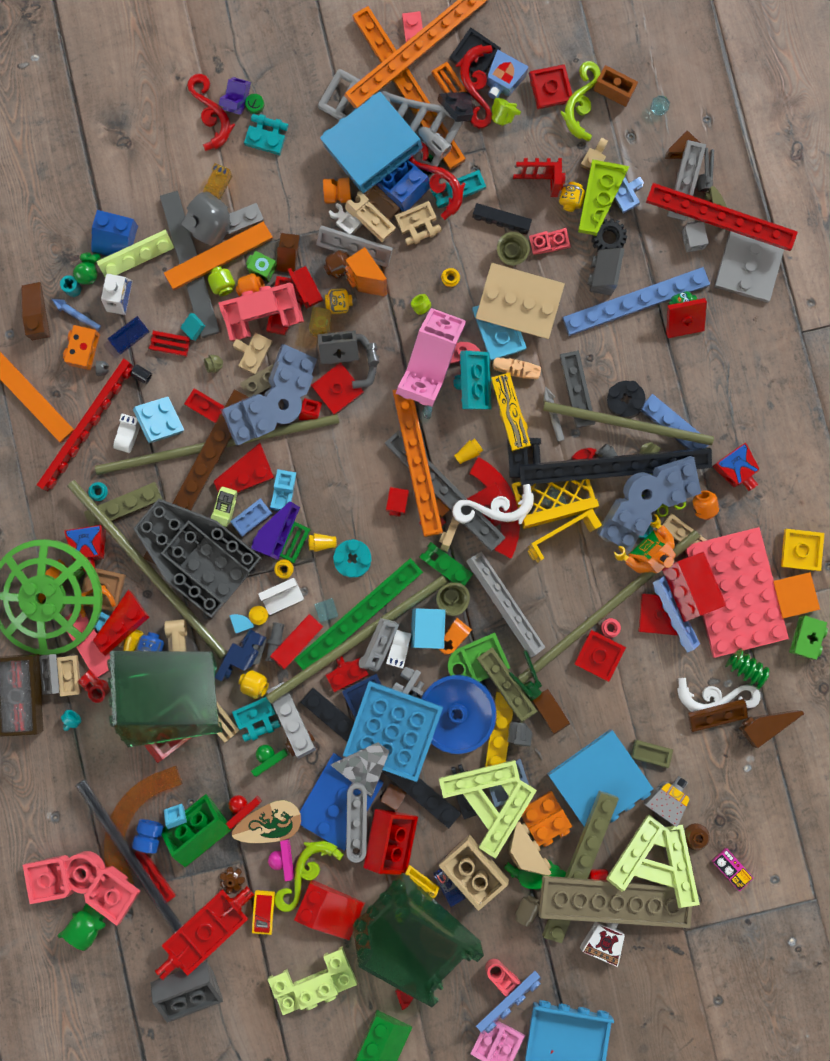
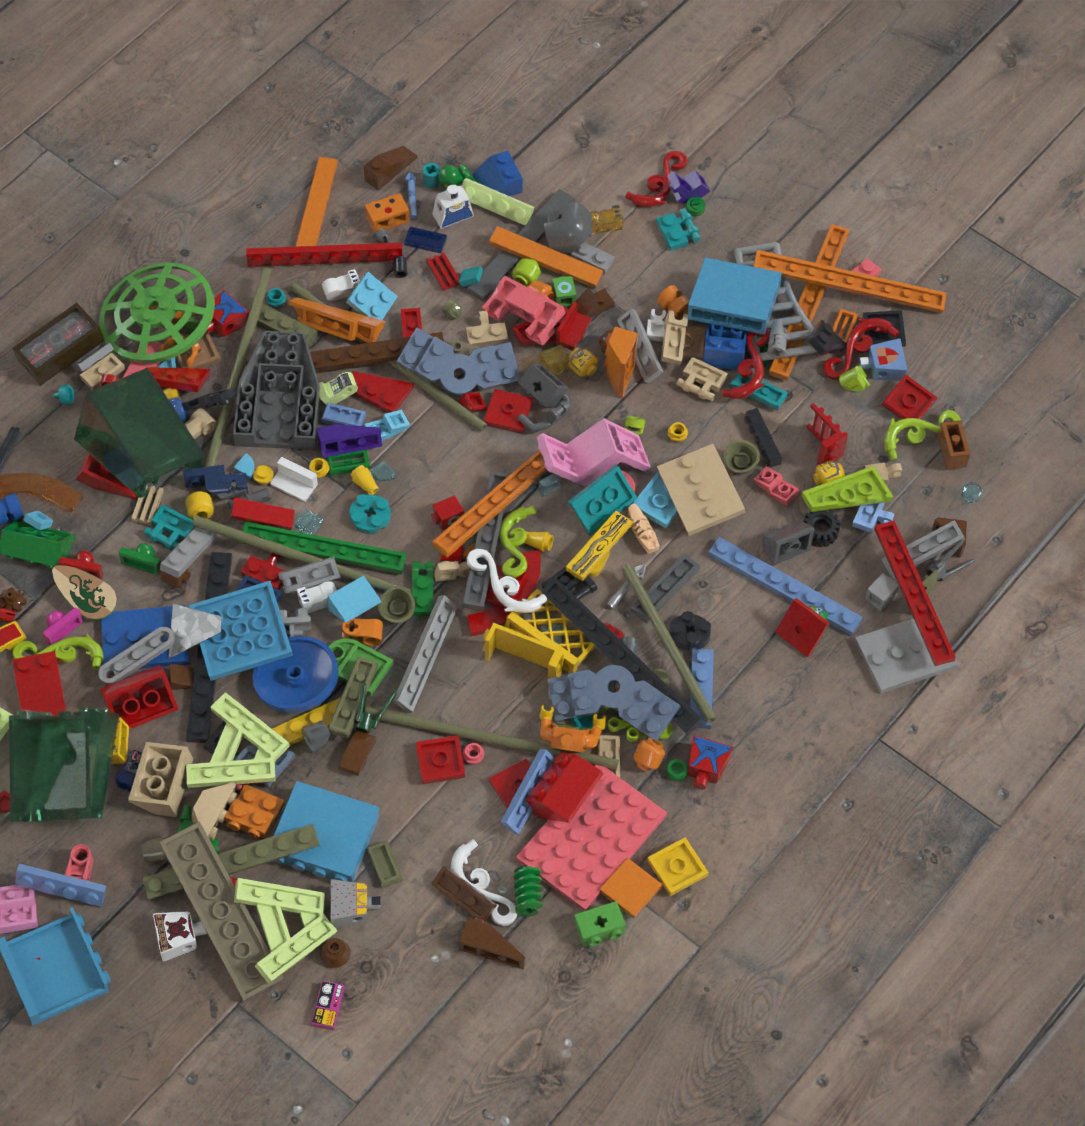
camera: 55 degrees right, 25 degrees down
(158, 460) = (337, 321): none -> orange wedge
(162, 613) = (210, 400): none -> black wing
(322, 523) = (383, 472): none -> clear light blue tile
(459, 476) = (518, 537): none -> lime plant
(726, 492) = (676, 770): none -> green tile

